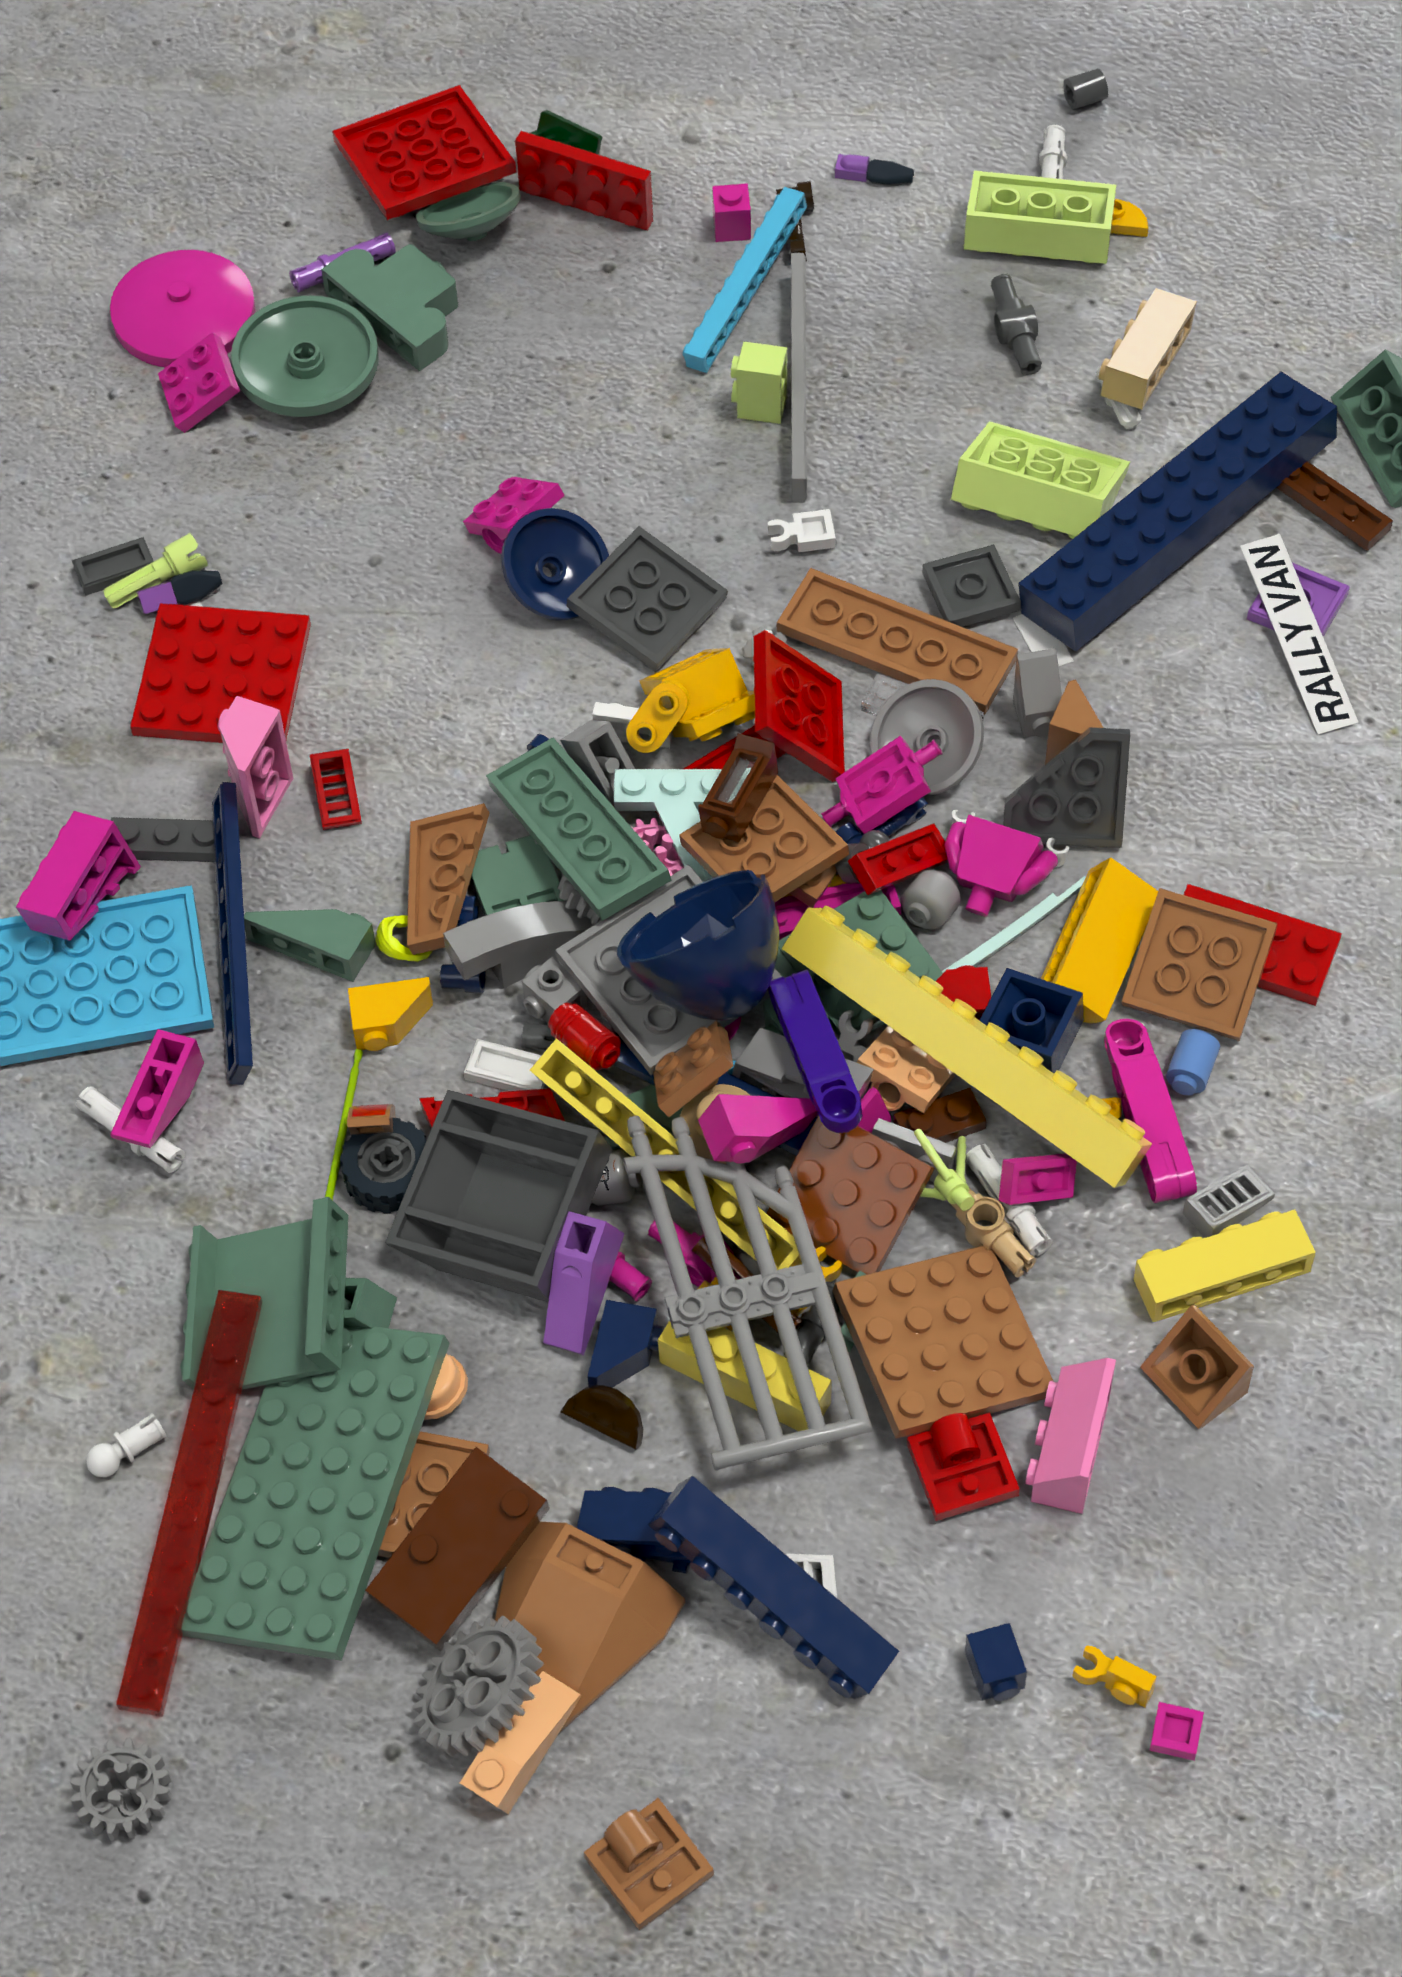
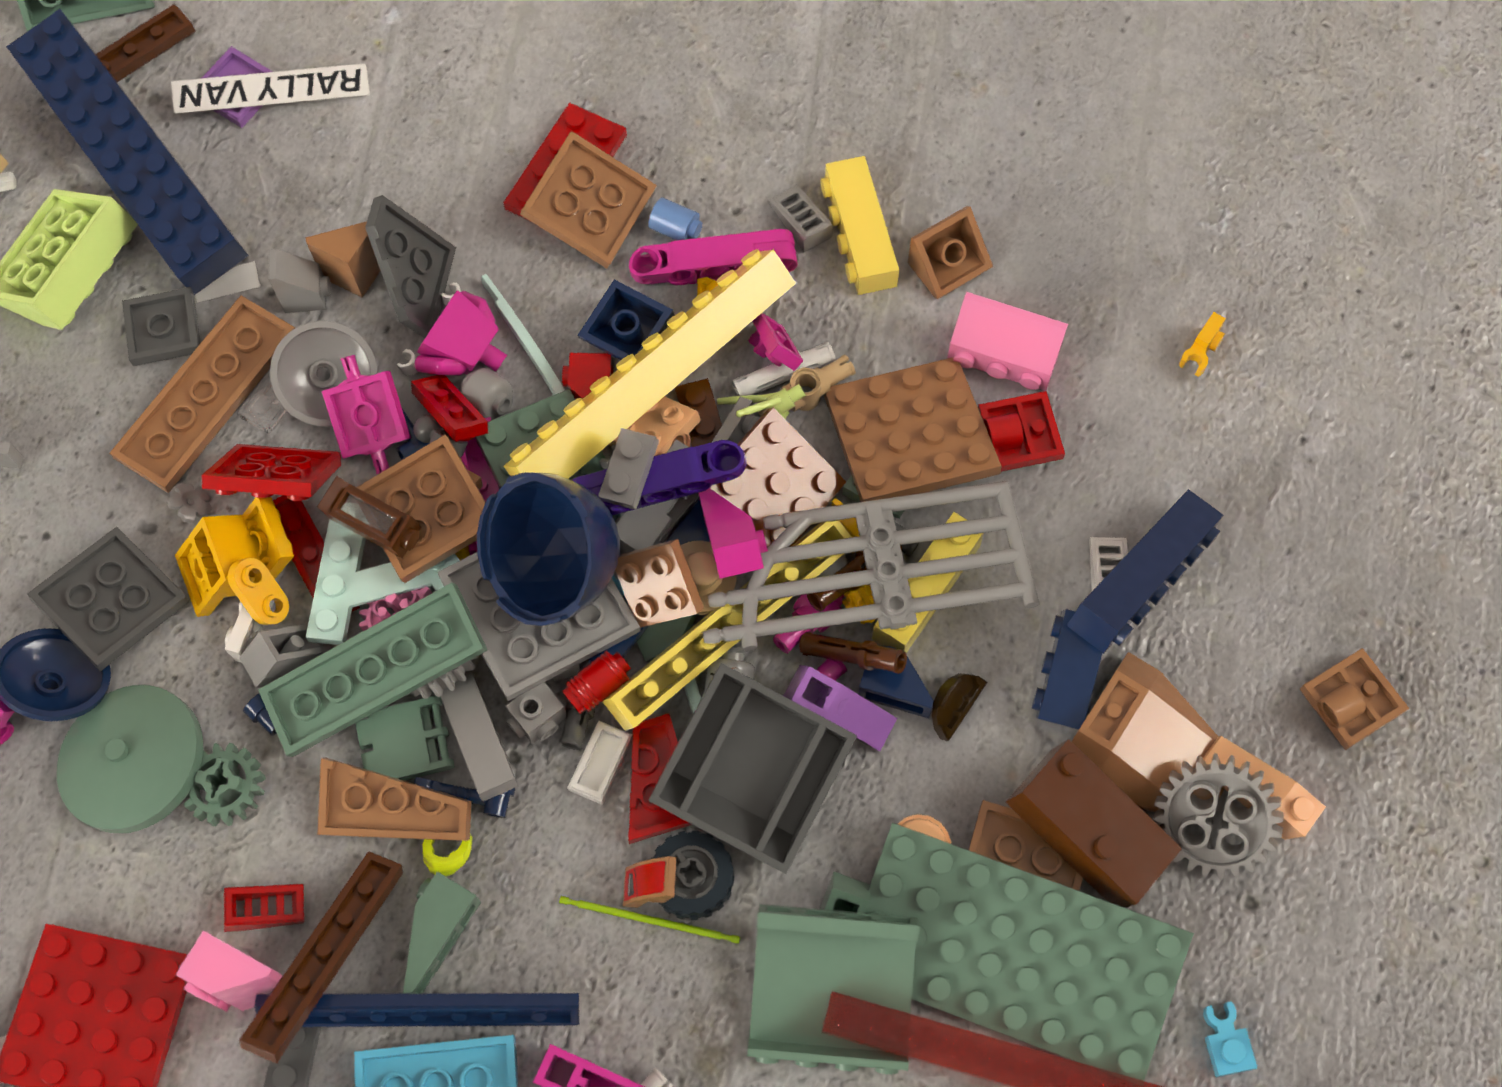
camera: 85 degrees left, 10 degrees up
(222, 1725) = (1228, 1048): none -> medium azure plate
(278, 833) = (320, 958): none -> reddish brown plate
(387, 1011) = (530, 869): yellow slope -> none
(456, 731) = (229, 798): none -> sand green gear
(476, 649) = (130, 759): none -> sand green dish
(639, 1296) = (866, 654): none -> reddish brown pin
(808, 530) = (61, 453): white plate -> none
(816, 1013) = (628, 468): none -> light grey plate
(996, 1662) = (1190, 426): dark blue brick -> none
(1101, 936) = (545, 271): yellow brick -> none
(1176, 1731) = (1245, 311): dark pink plate -> none

